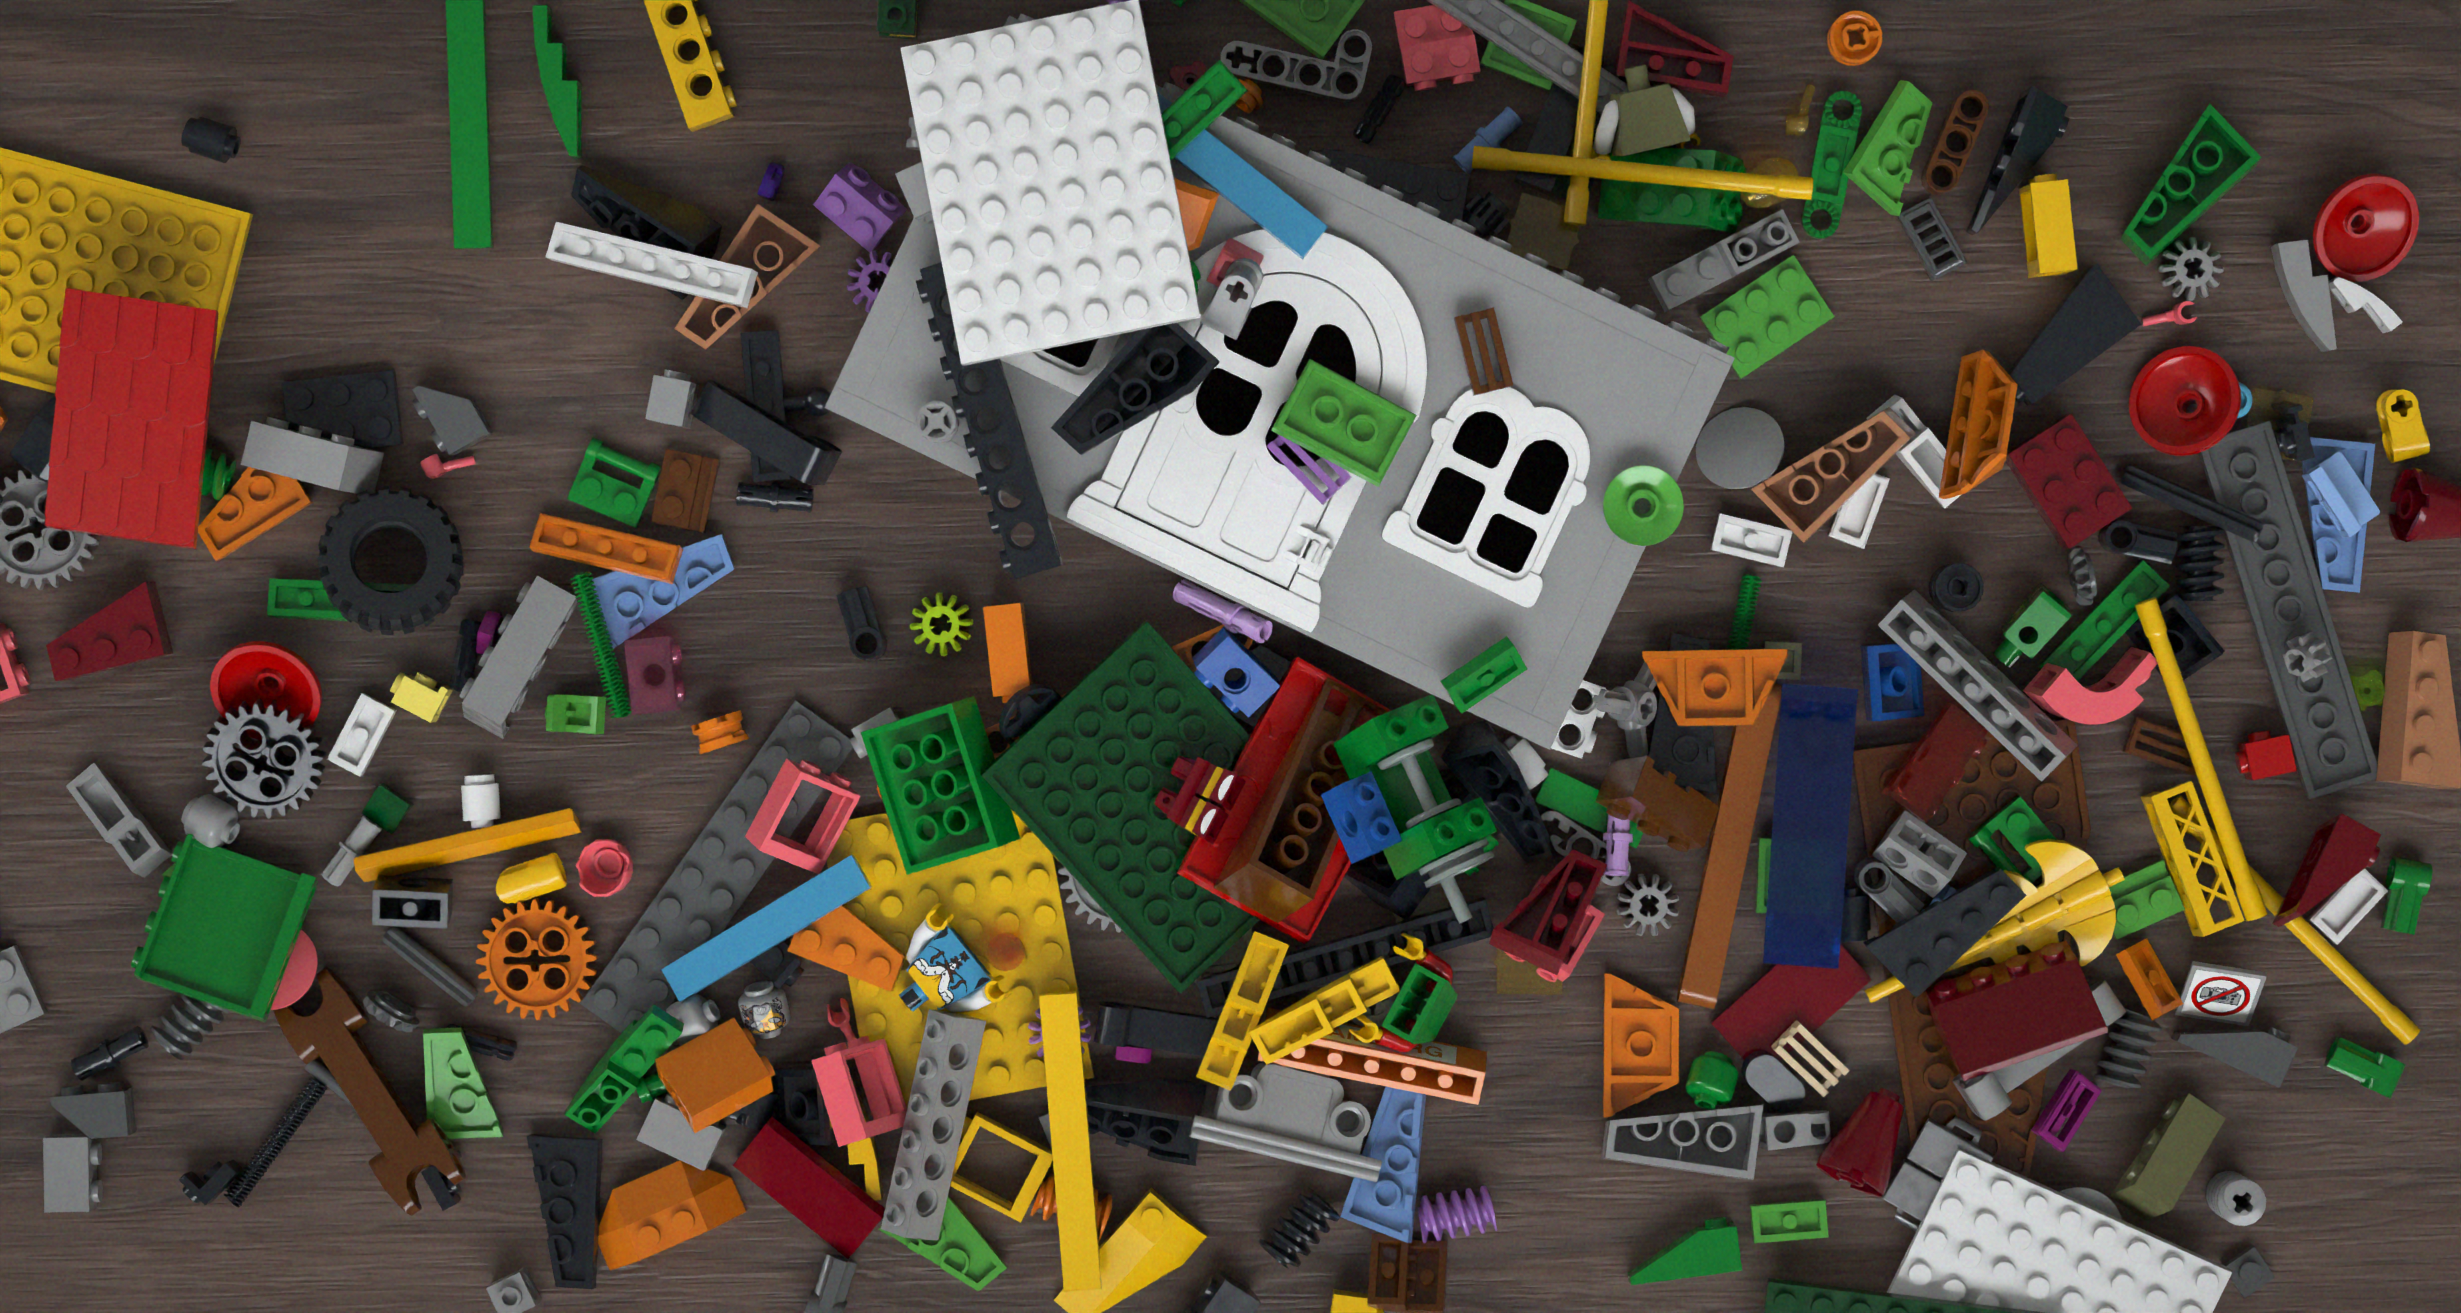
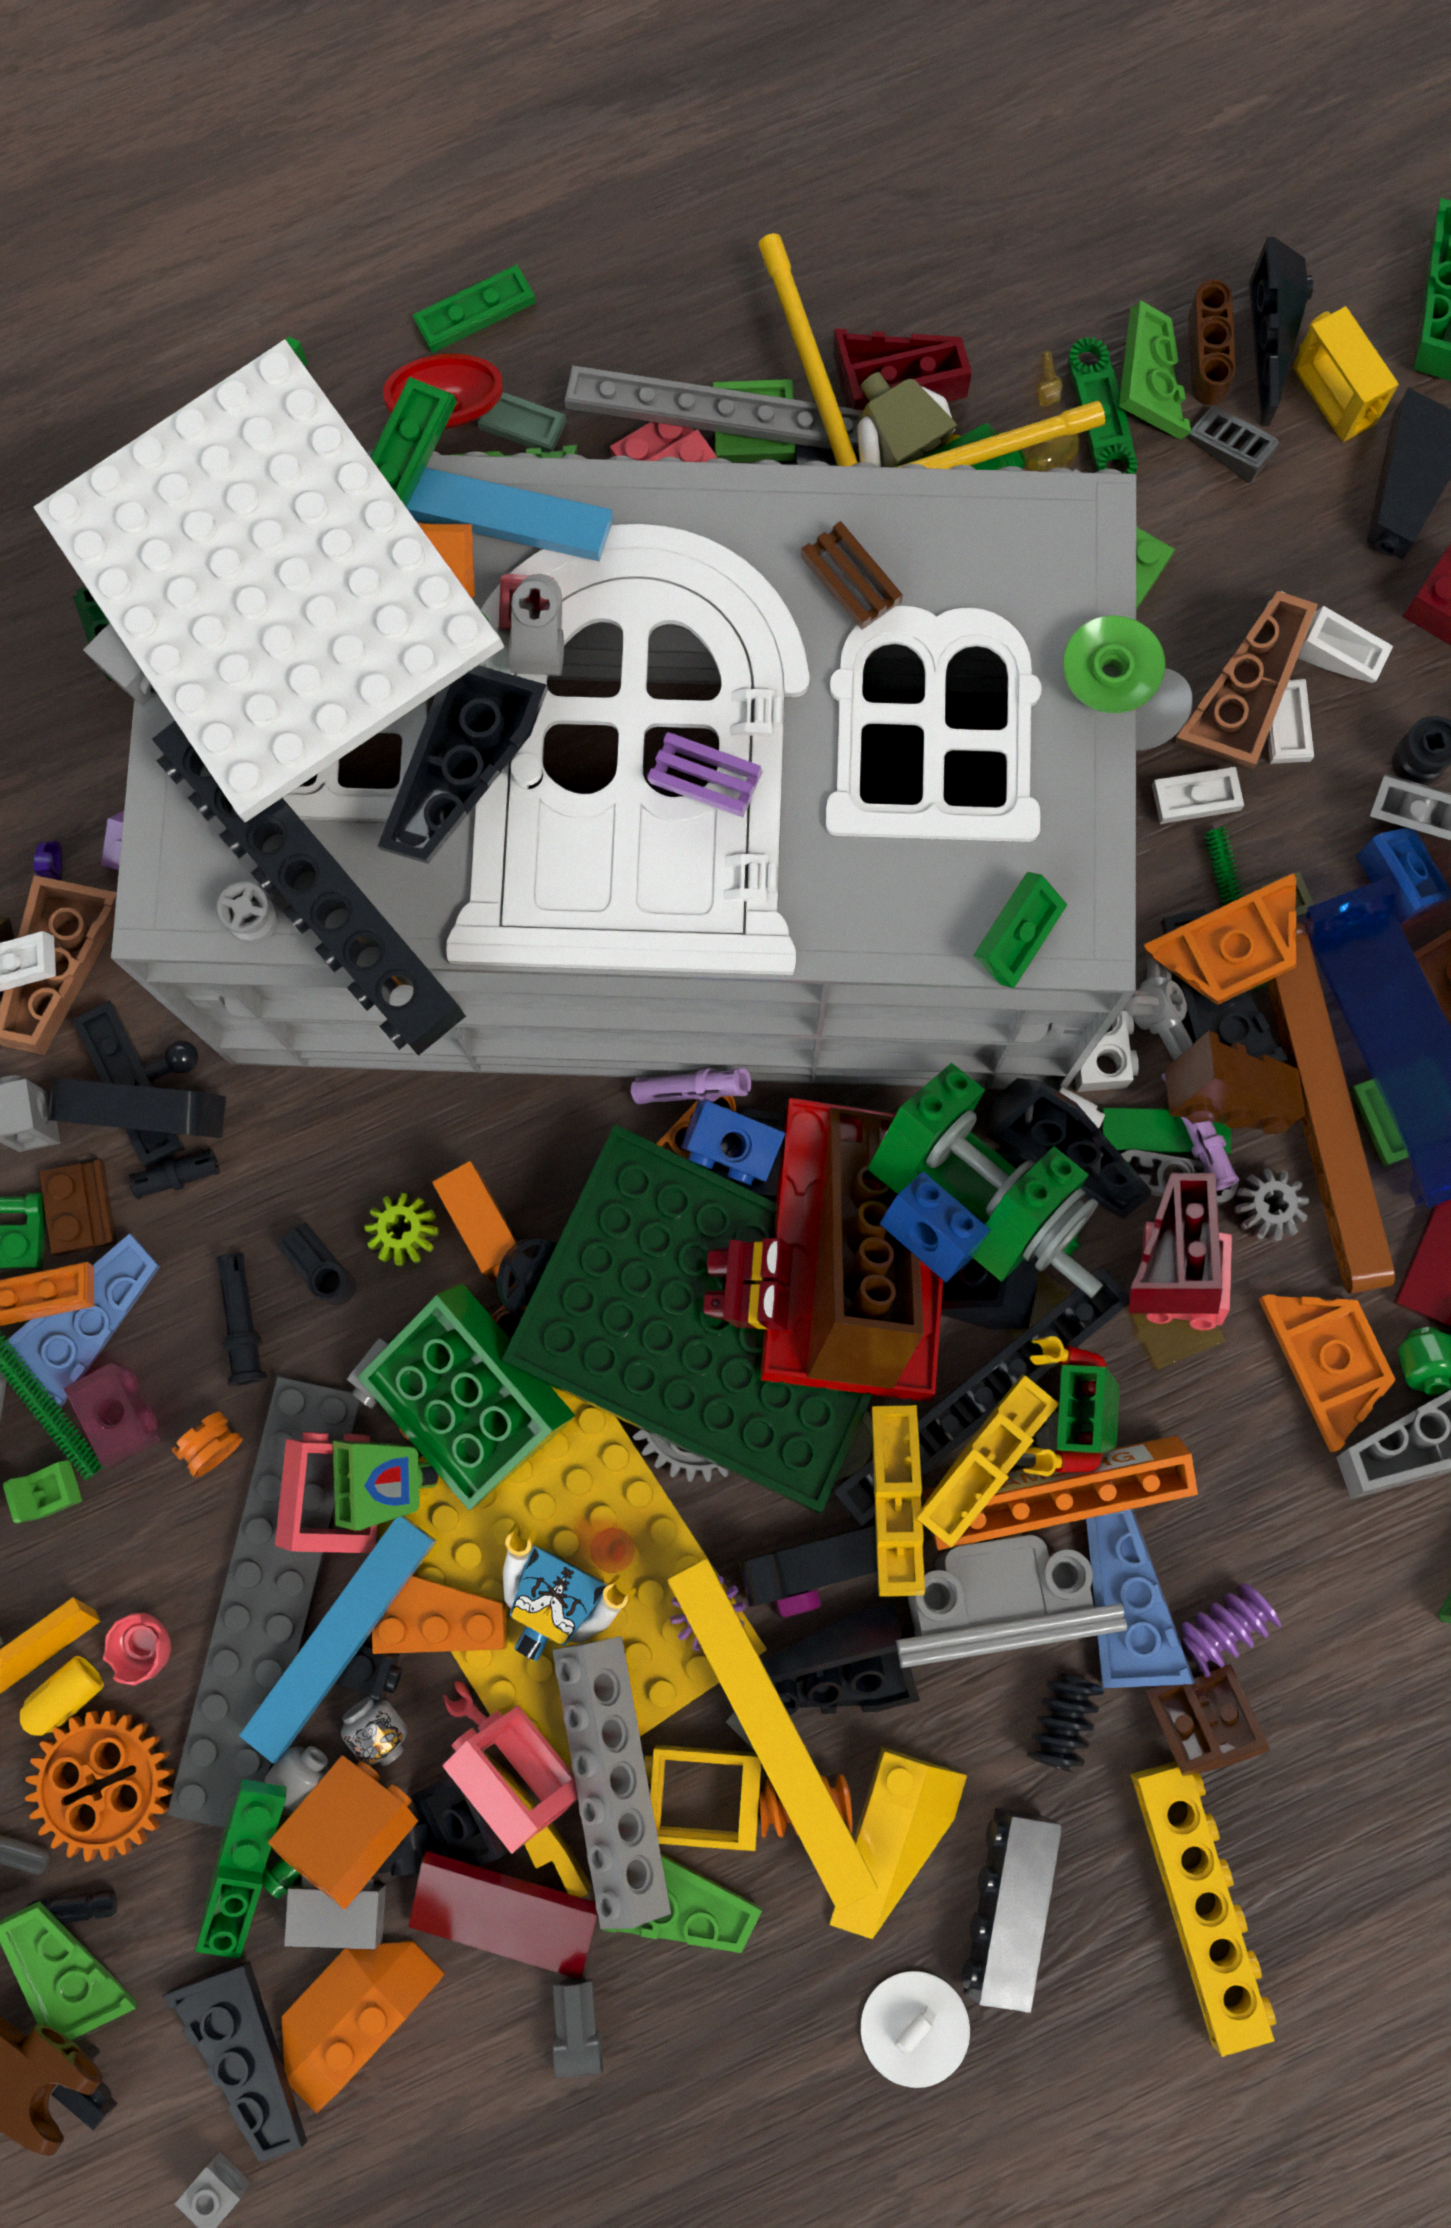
camera: 20 degrees left, 10 degrees down
(778, 659) = (241, 1340): none -> black pin
(844, 824) = (377, 1482): none -> bright green torso
(1344, 422) = (726, 712): bright green tile -> none
(1854, 38) = (1067, 289): orange wheel -> none
(1978, 424) = (1373, 576): orange wedge -> none

